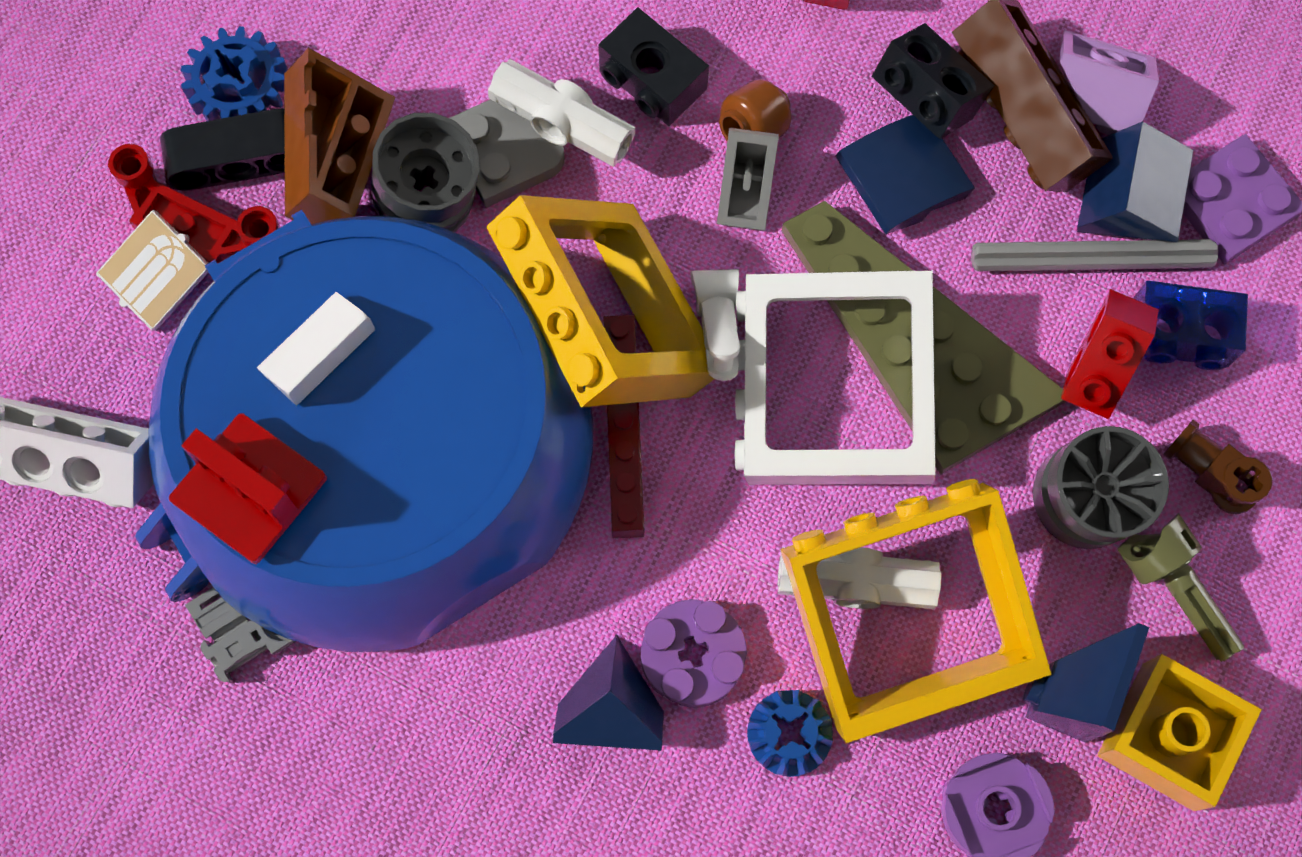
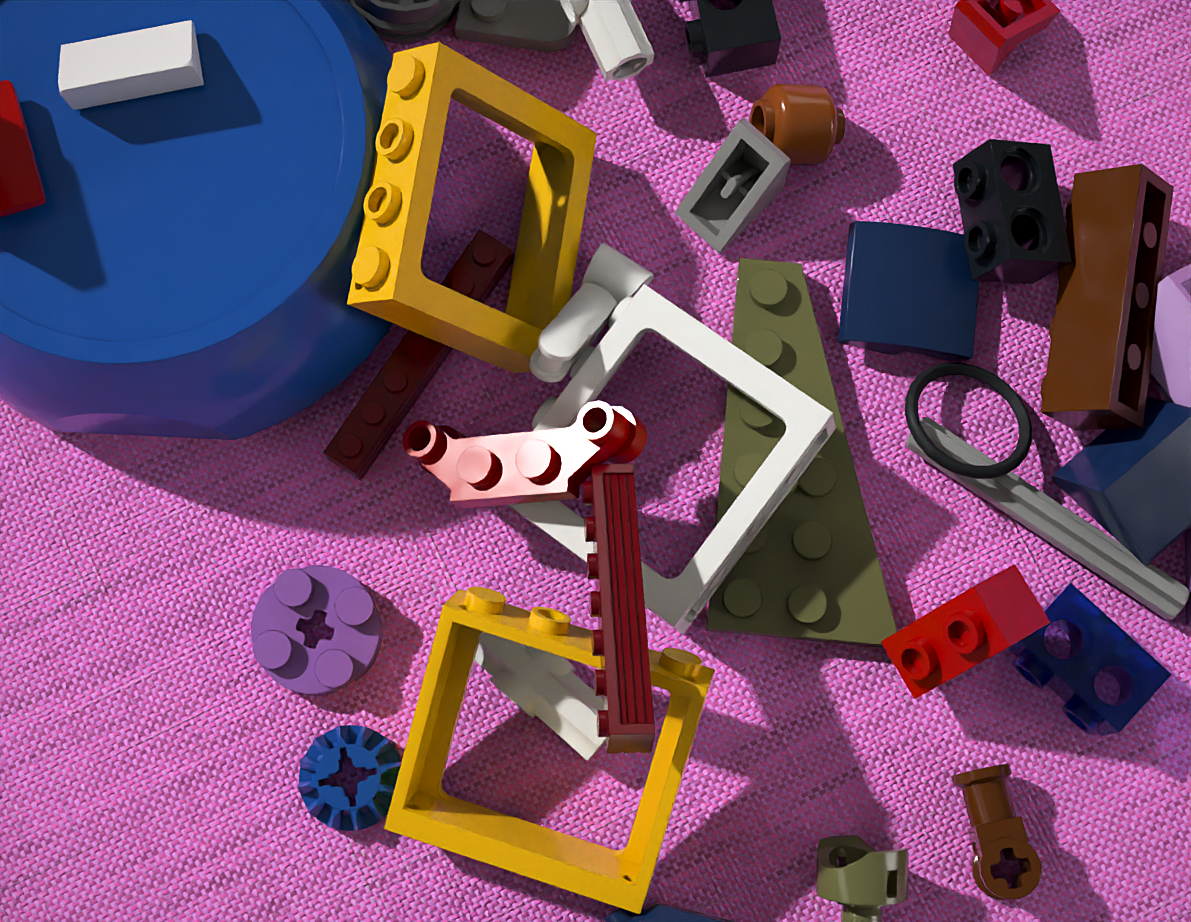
camera: 40 degrees right, 5 degrees up
(610, 706) = (196, 625): dark blue slope -> none
(758, 441) = (526, 464): none -> plate
(905, 479) = (620, 610): none -> dark red piece
(986, 255) = (939, 456): none -> black tyre
(1101, 488) = (846, 765): dark grey wheel -> none

